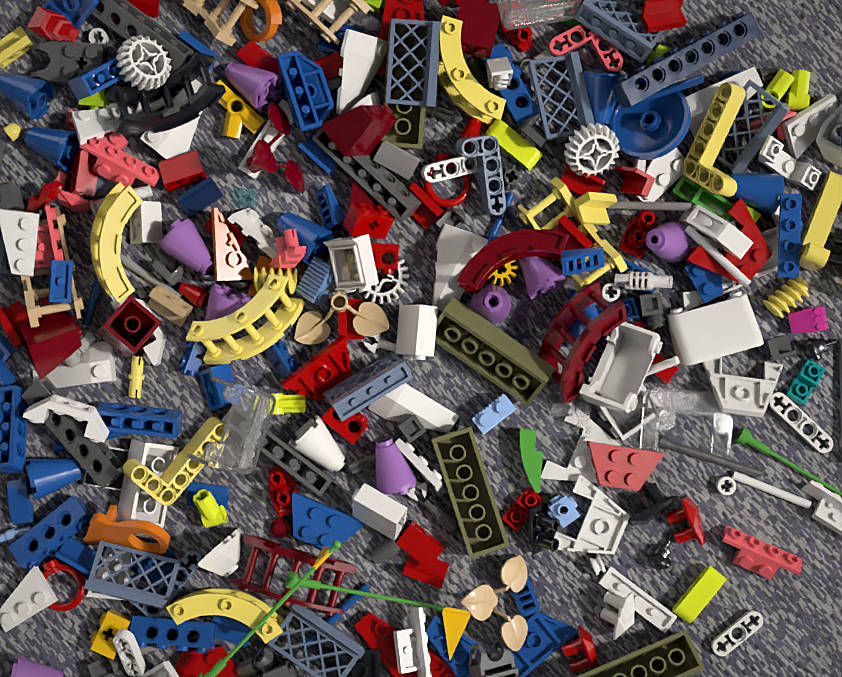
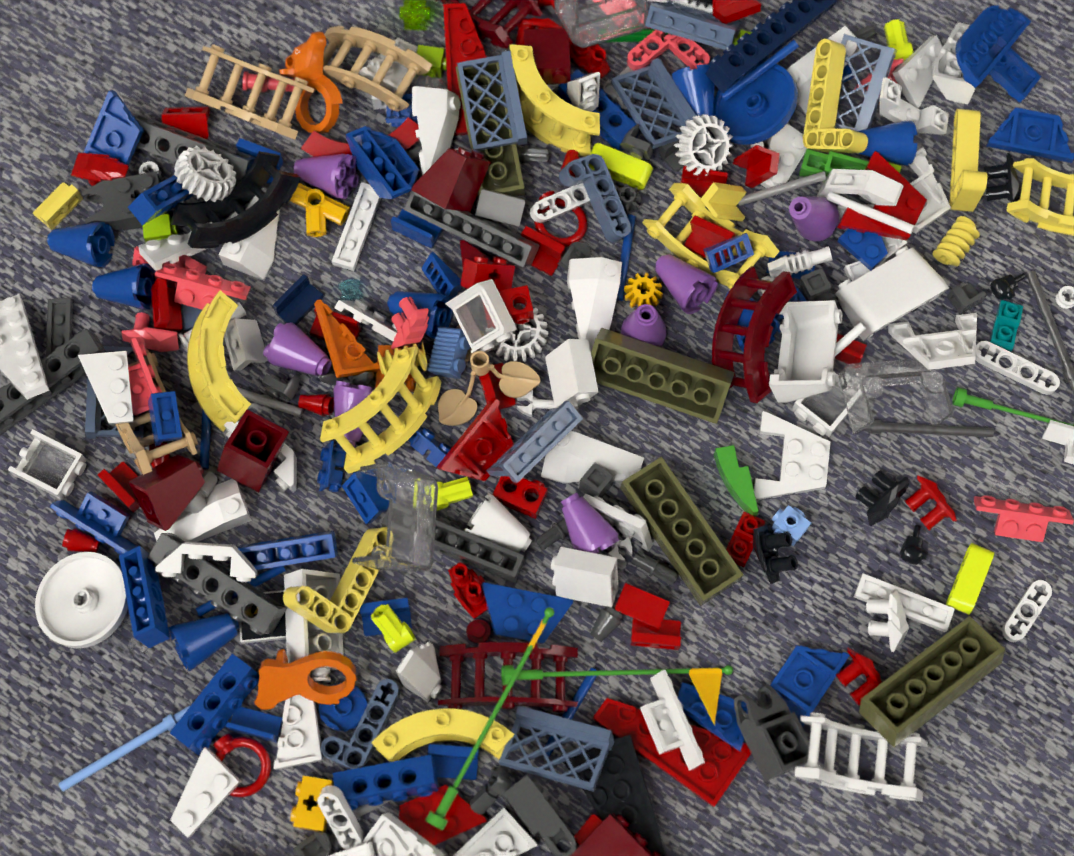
camera: 15 degrees left, 15 degrees down
(13, 131) = (77, 287): light yellow hinge -> none
(19, 501) = (171, 680): blue slope -> none
(47, 195) = (131, 329): red slope -> none
(128, 593) = (322, 745): sand blue fence -> none
(136, 376) = (273, 507): light yellow pin -> none
(169, 305) = (299, 424): tan panel -> none
(182, 171) = (271, 280): red panel -> none
(263, 157) = (356, 224): dark red plant -> none
(482, 600) = (732, 643): tan plant -> none
(493, 413) = (681, 442): light blue brick -> none
(509, 248) = (649, 255): dark red fence -> none
(530, 610) = (773, 643): blue slope -> none
(580, 410) = (775, 414): clear bar -> none
(597, 564) = (847, 576): white bush -> none
(601, 526) = (838, 531): white wing -> none
(622, 465) = (839, 460): wing -> none
(635, 234) = (777, 221): red connector -> none
(731, 490) = (961, 447): white bush -> none
(771, 490) = (1009, 446): white bar -> none
(778, 86) = (877, 34): neon yellow piece -> none
(789, 235) = (938, 173): blue bracket -> none
(808, 320) = (987, 260): dark pink hand -> none

